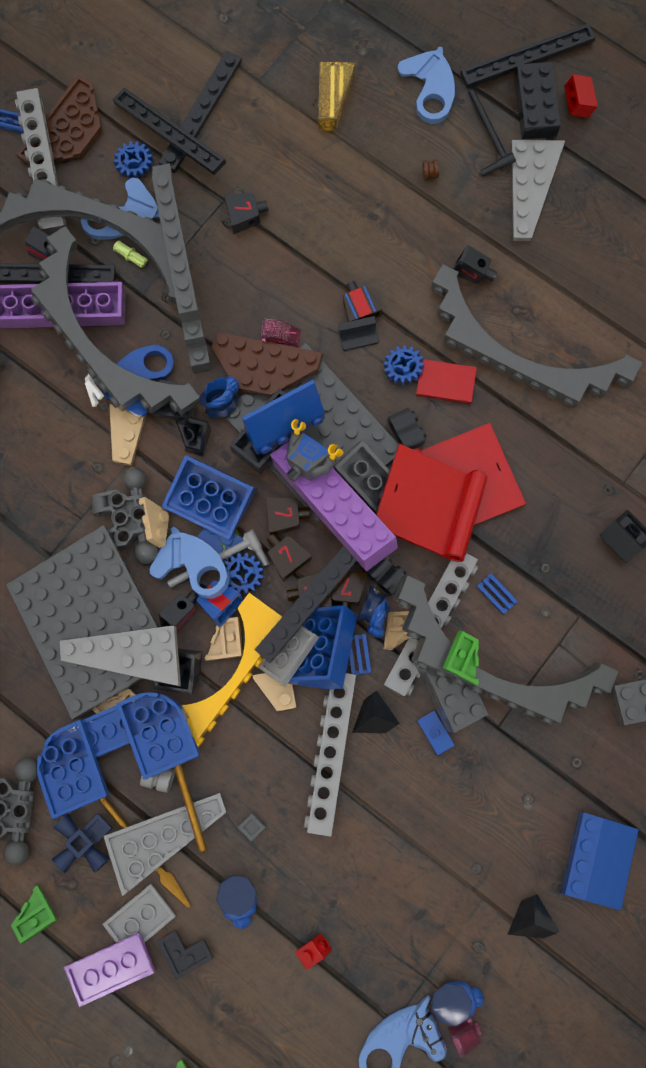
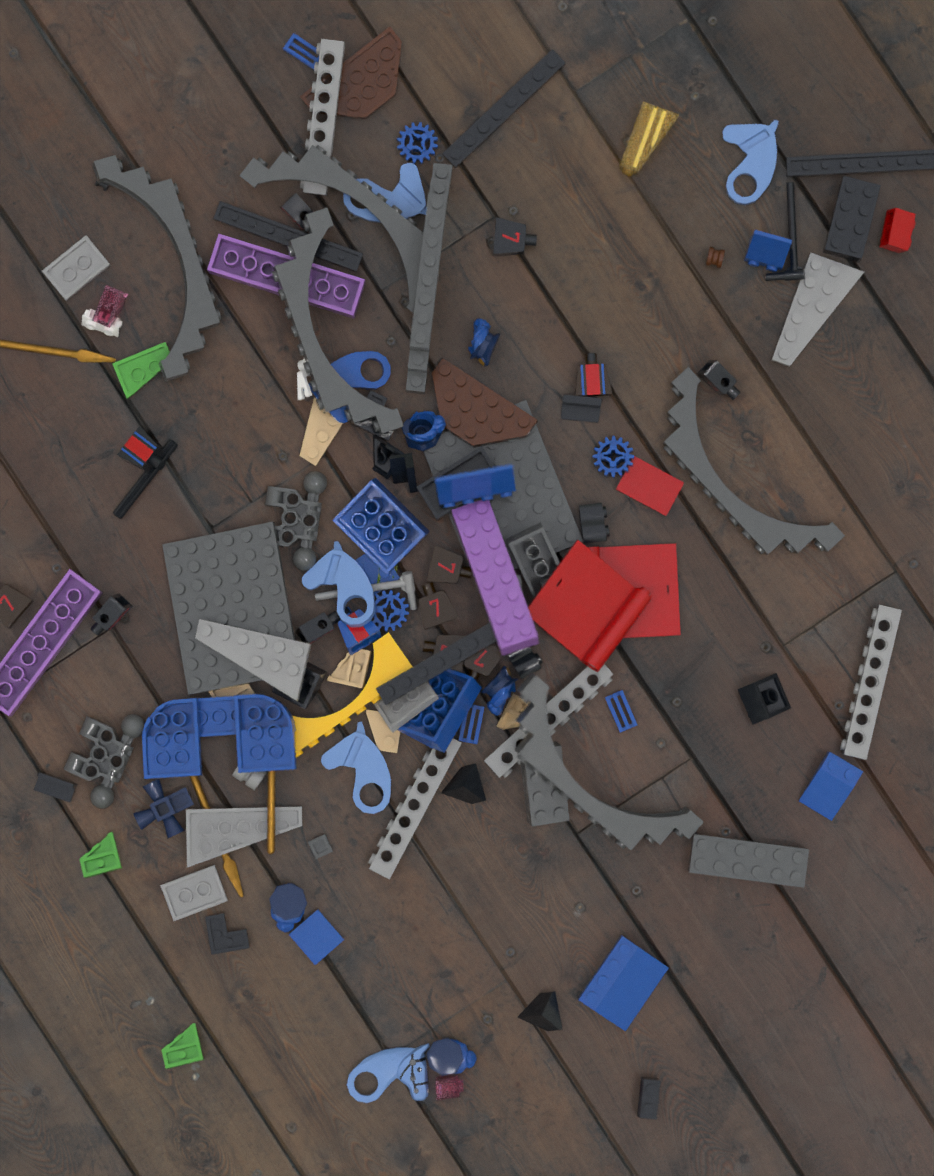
camera: 15 degrees right, 10 degrees up
(109, 969) = (155, 926): tile -> none
(130, 254) = (382, 245): yellowish green axle -> none
(155, 522) = (321, 534): tan wing -> none
(169, 131) = (463, 126): black plate -> none
(213, 439) = (403, 470): none -> black panel
(249, 303) = (483, 342): none -> piece
(273, 727) = (370, 766): none -> medium blue animal
(277, 922) = (316, 937): none -> blue piece
(280, 332) = (504, 382): clear pink slope -> none
(307, 456) = (485, 529): torso -> none
(313, 951) = (340, 972): red bracket -> none
(435, 733) = (517, 819): blue plate -> none
(463, 657) = (561, 764): bright green wing -> none
(475, 141) = (767, 250): none -> blue slope

